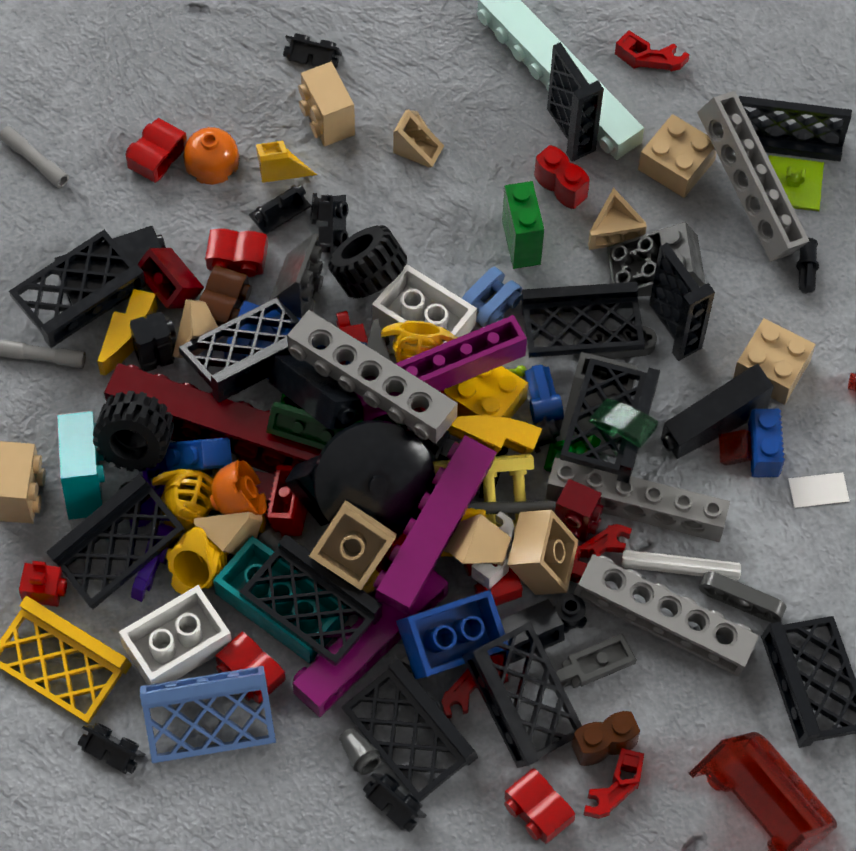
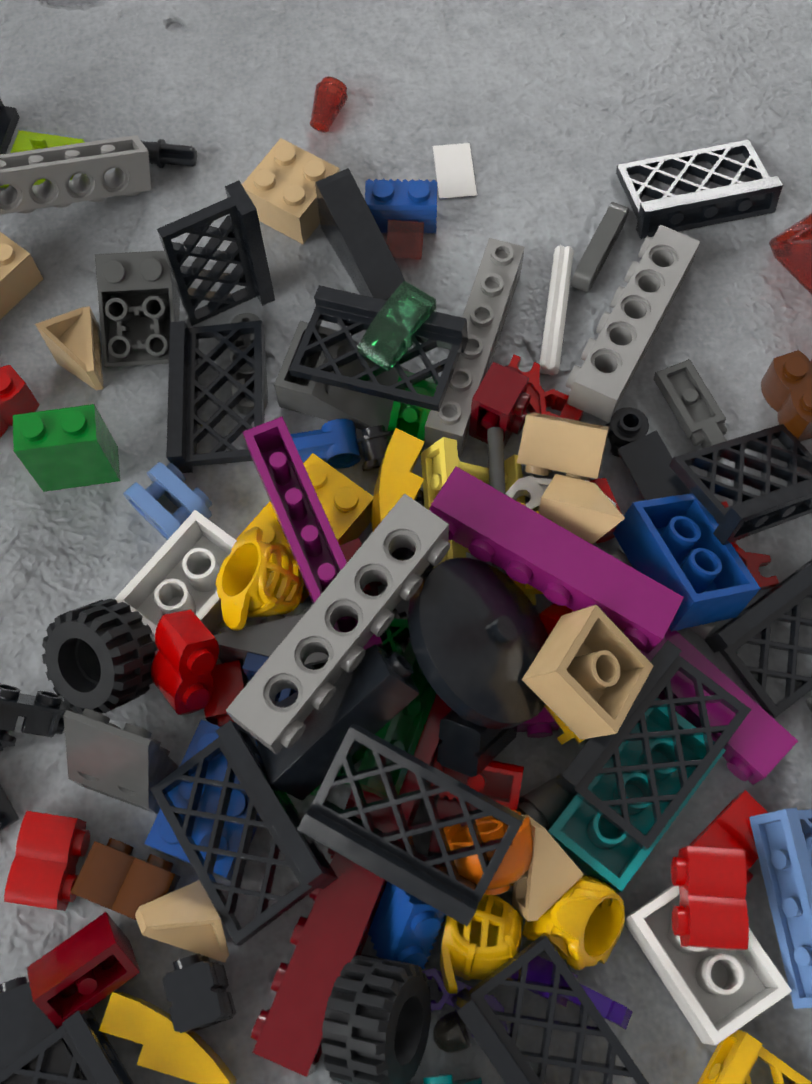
camera: 85 degrees left, 5 degrees up
(206, 625) = (711, 898): none -> red brick
(233, 423) = (400, 861): none -> black fence
(361, 307) = (184, 661): none -> red brick

